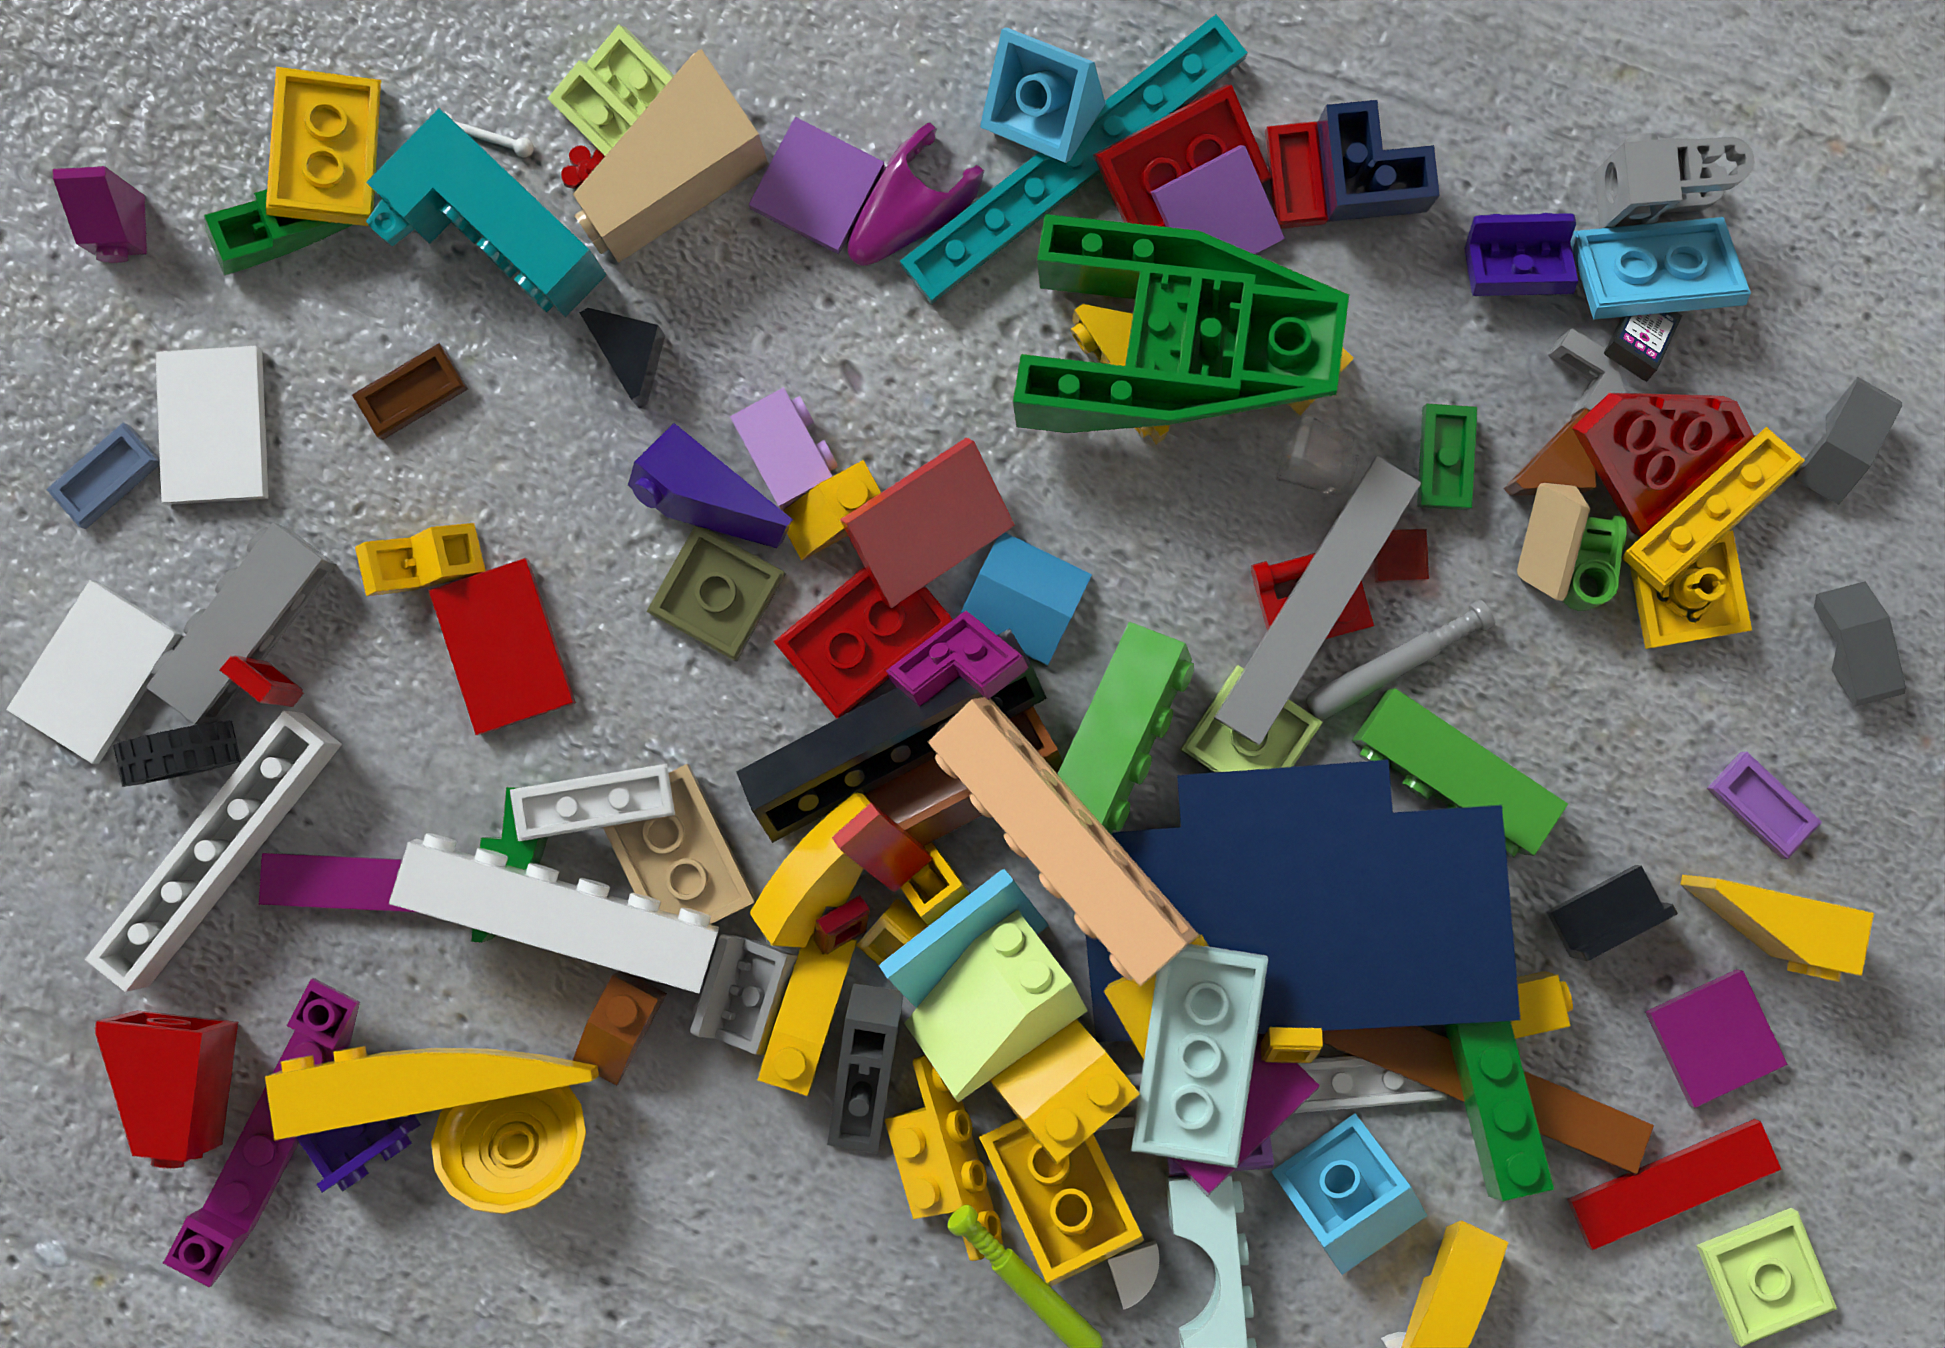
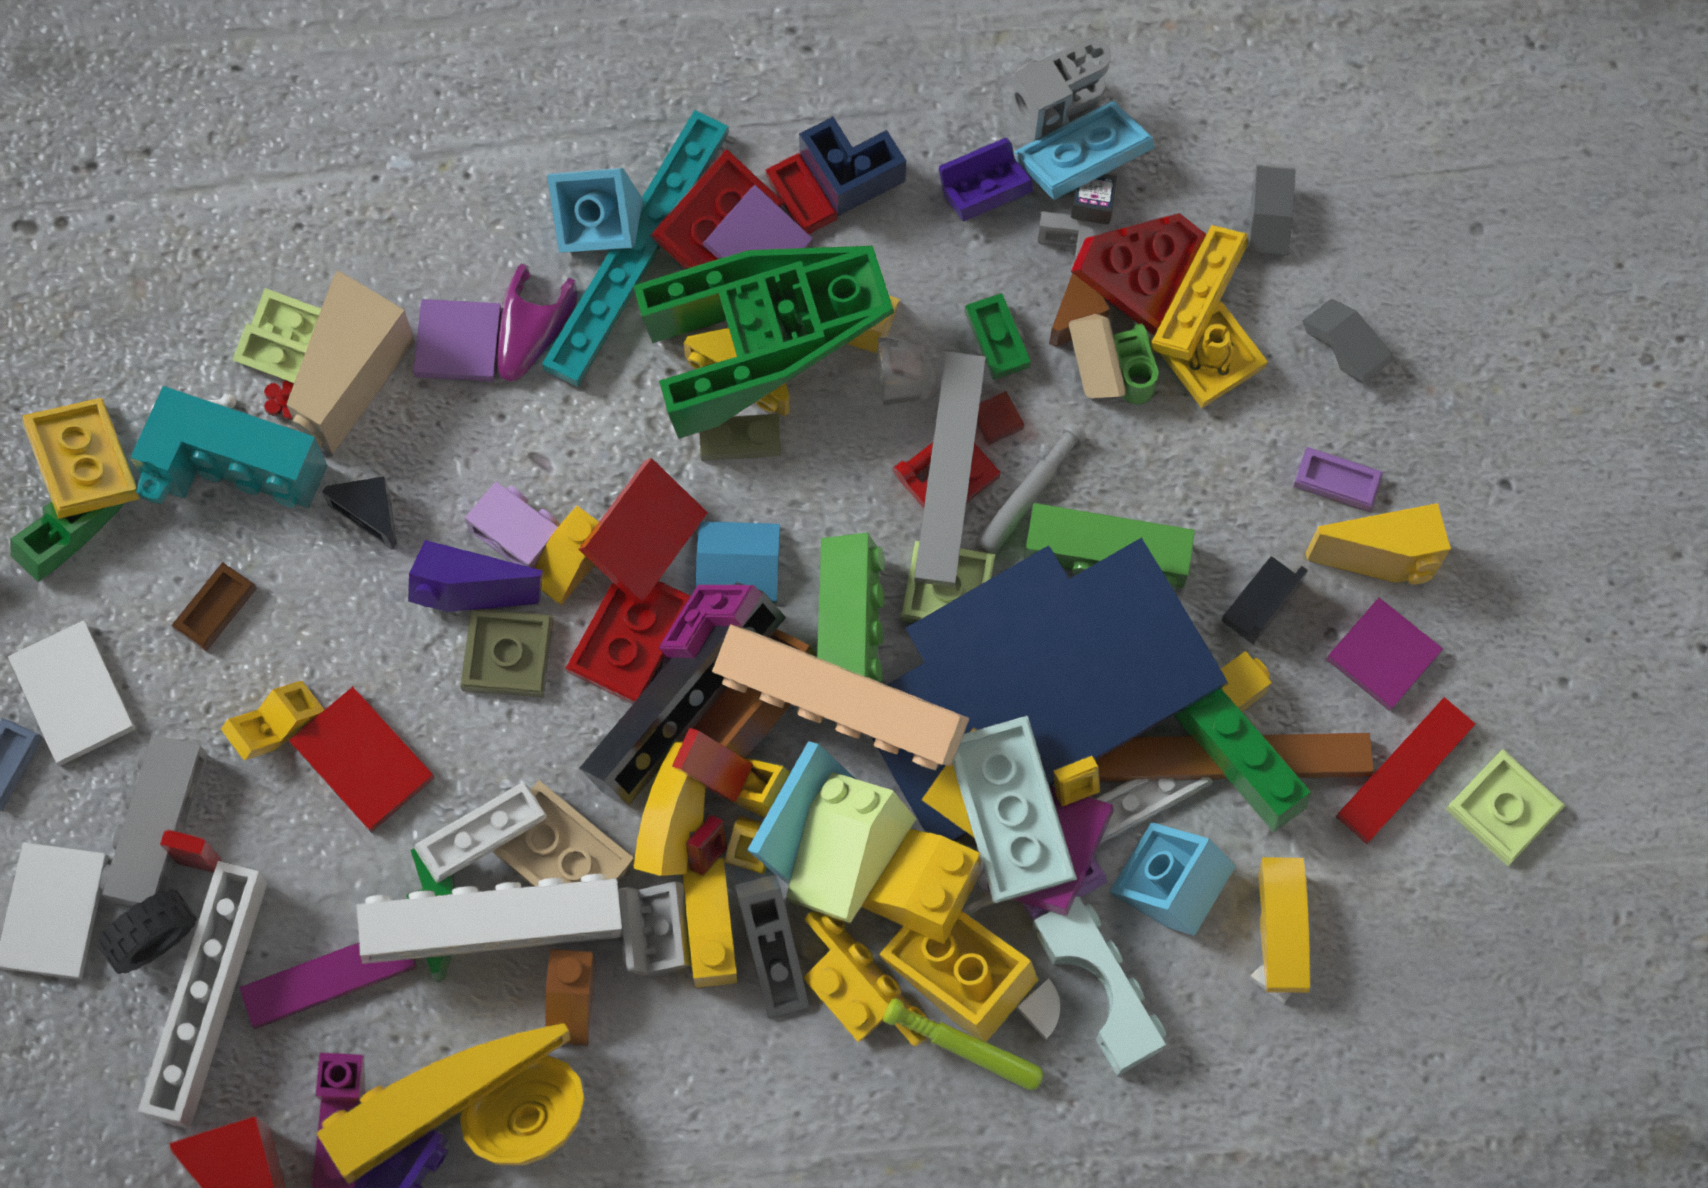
camera: 25 degrees left, 15 degrees down
(1100, 454) = (742, 438): none -> olive plate

